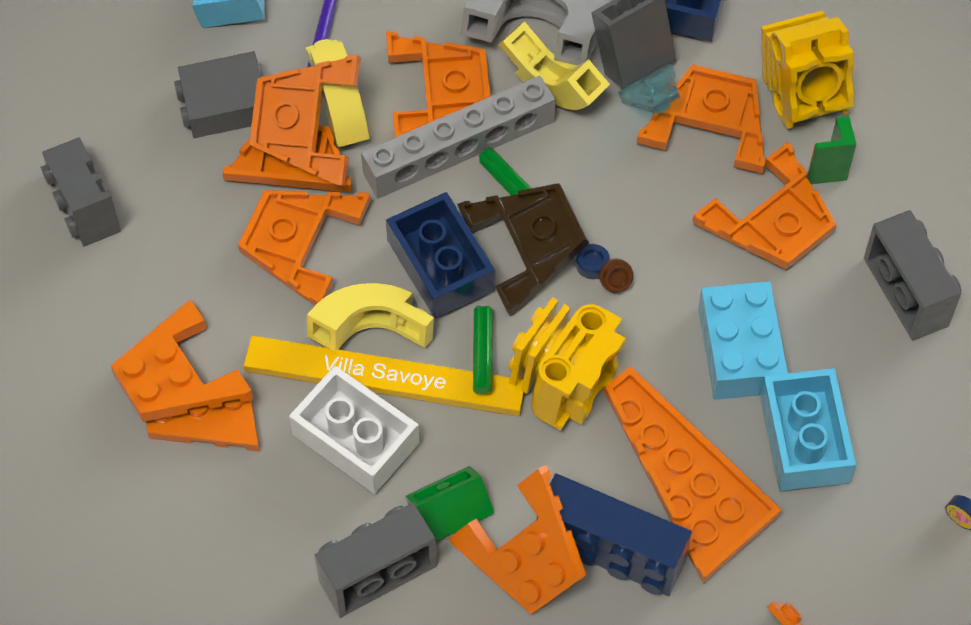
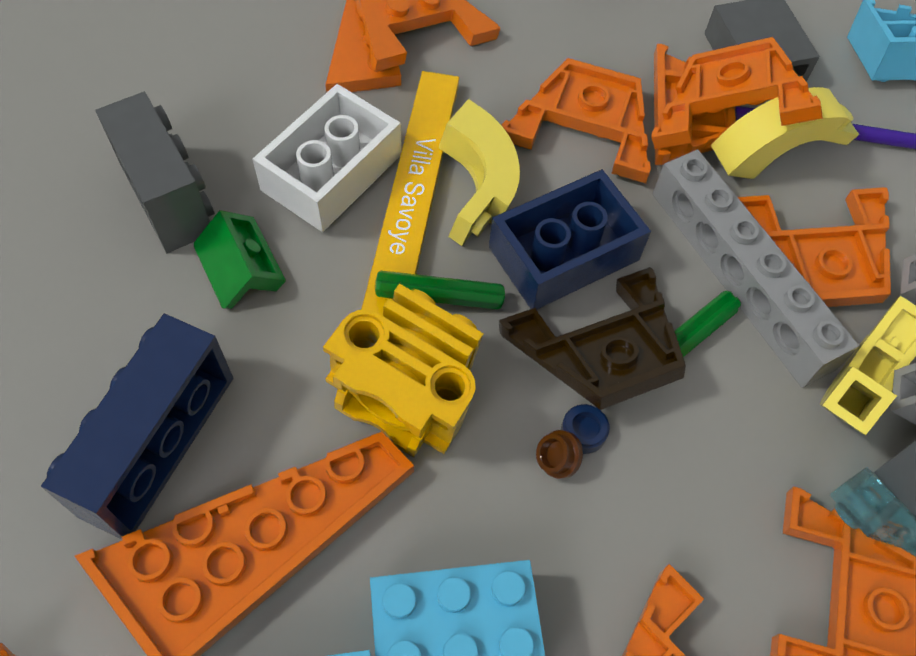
camera: 85 degrees right, 0 degrees up
(536, 561) = (130, 319): orange wing -> none

